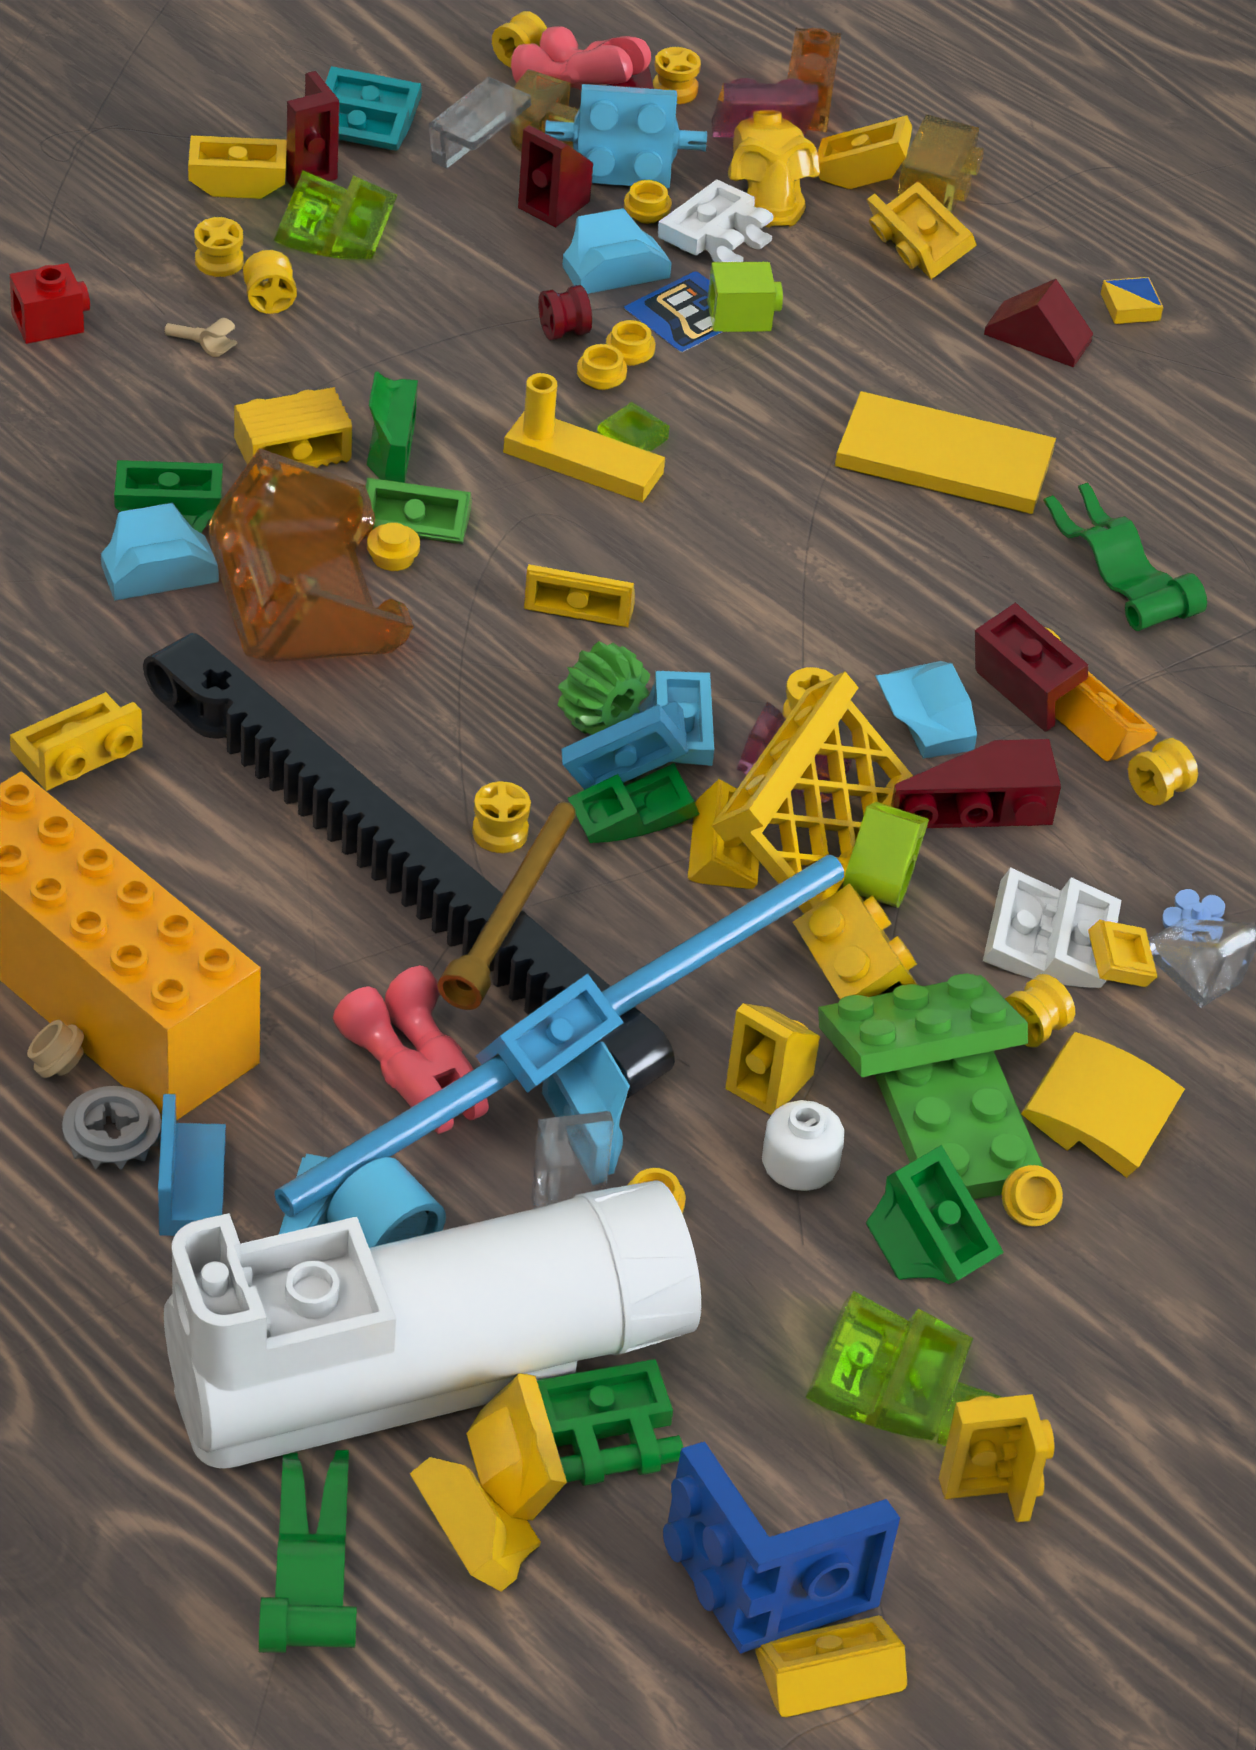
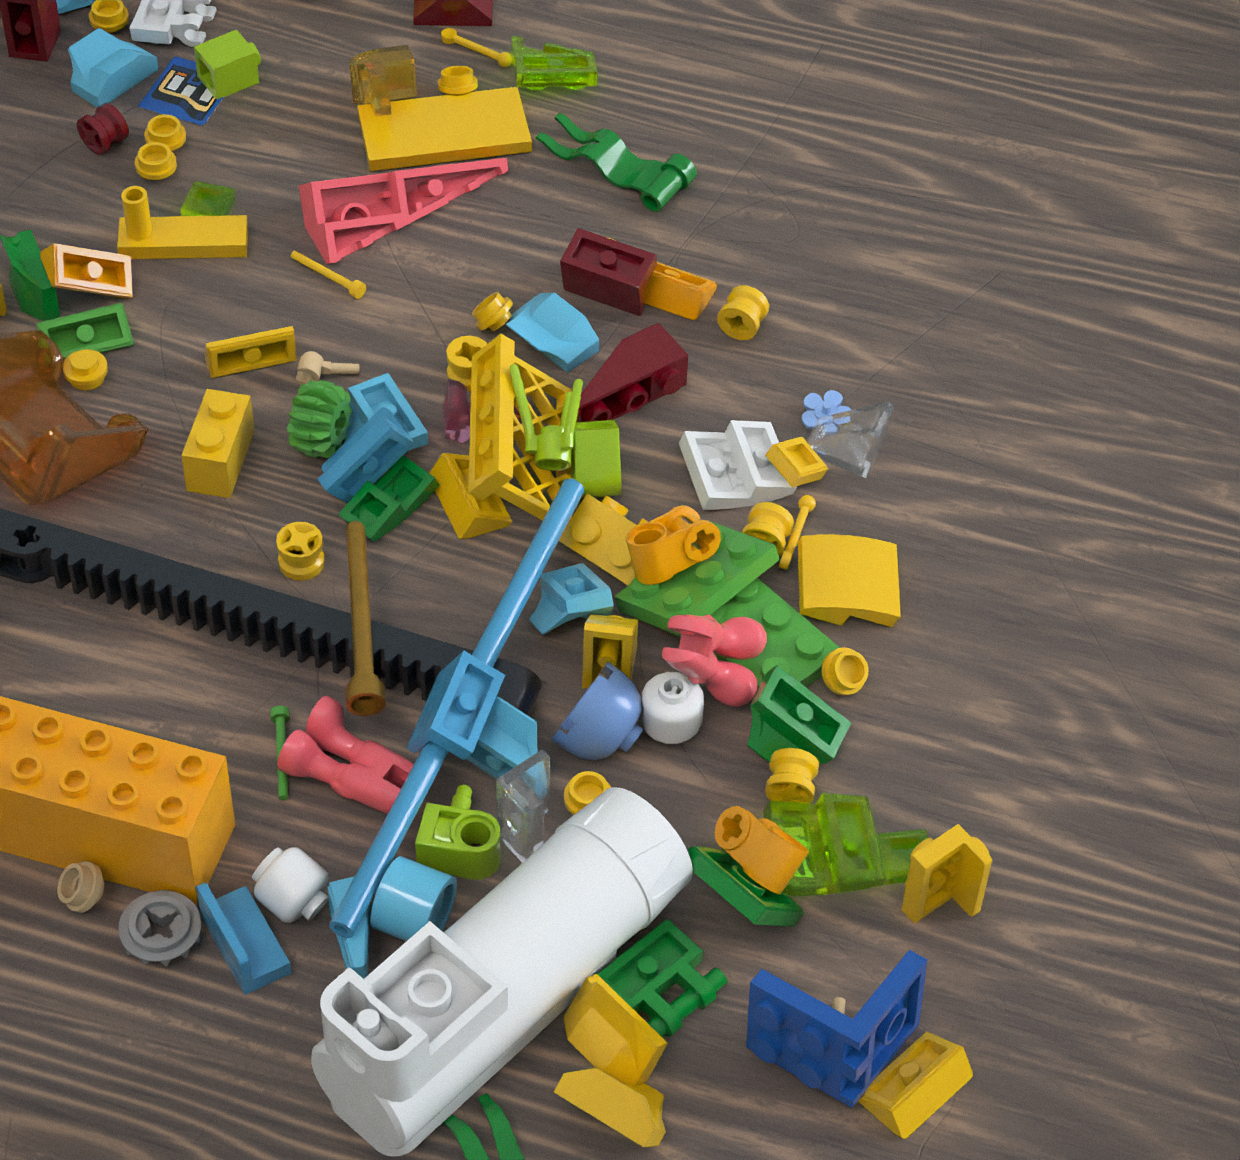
camera: 25 degrees left, 5 degrees up
(269, 1141) = (290, 884): none -> white head
(373, 974) = (280, 716): none -> bright green piece
(454, 446) = (88, 270): none -> light orange slope
(477, 1174) = (449, 831): none -> lime piece
(481, 672) = (218, 443): none -> yellow brick
(639, 636) = (313, 365): none -> tan hand
(716, 1119) = (603, 717): none -> medium blue cylinder
(738, 578) = (356, 288): none -> yellow piece
(758, 1362) = (741, 891): none -> green tile
(765, 981) = (570, 595): none -> medium azure slope
(796, 498) = (361, 209): none -> coral wedge
(803, 1331) = (760, 847): none -> light orange piece
(840, 815) = (555, 442): none -> lime plant
(851, 1095) = (734, 639): none -> coral piece
(873, 659) = (492, 312): none -> yellow plate
(896, 1276) = (792, 776): none -> yellow wheel
(902, 972) = (665, 547): none -> light orange piece
(903, 370) = (382, 77): none -> clear yellow brick
(990, 406) = (457, 80): none -> yellow plate
(1016, 360) = (450, 36): none -> yellow hinge
(1107, 1005) = (806, 505): none -> yellow hinge
(1113, 433) = (553, 66): none -> clear neon green wing

